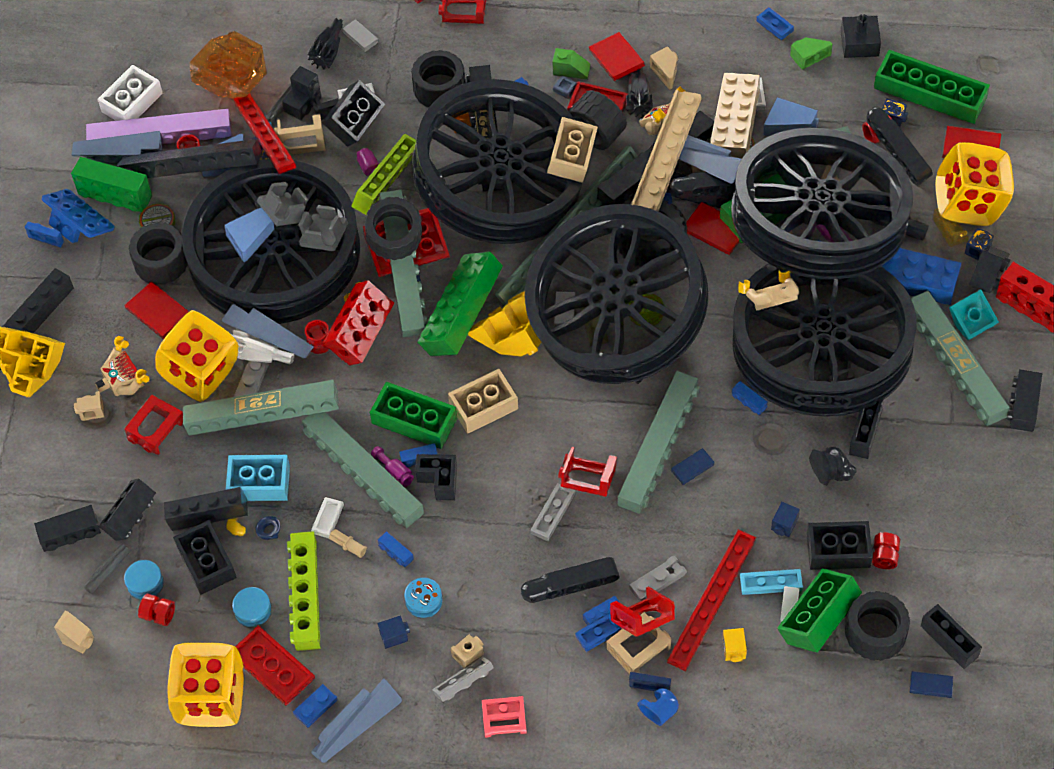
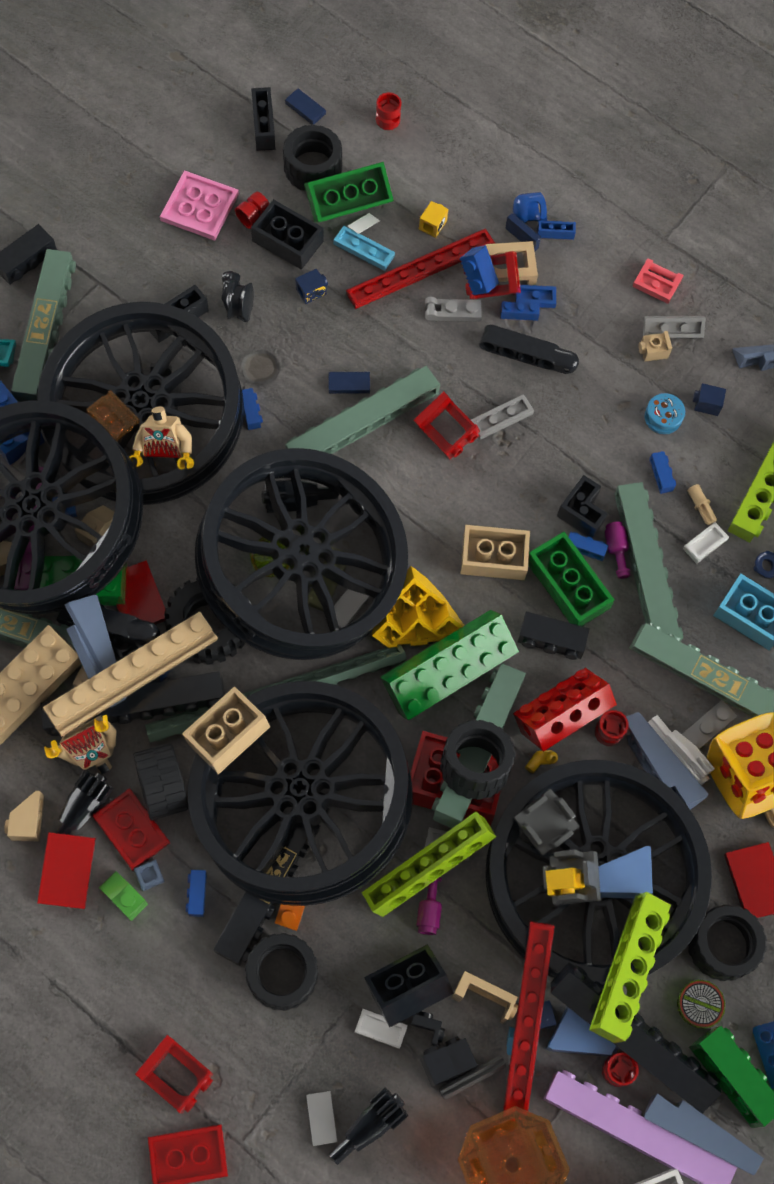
camera: 155 degrees left, 10 degrees up
(213, 162) = (605, 1021): none -> lime brick
(289, 194) = (564, 881): none -> yellow brick
(403, 373) = (553, 636): none -> black brick
(623, 705) = (556, 229): none -> blue piece
(654, 599) = (479, 270): none -> blue brick
(829, 296) = (113, 415): none -> clear orange plate
(853, 719) = (388, 111): none -> red wheel
(934, 531) = (199, 205): none -> bright pink plate

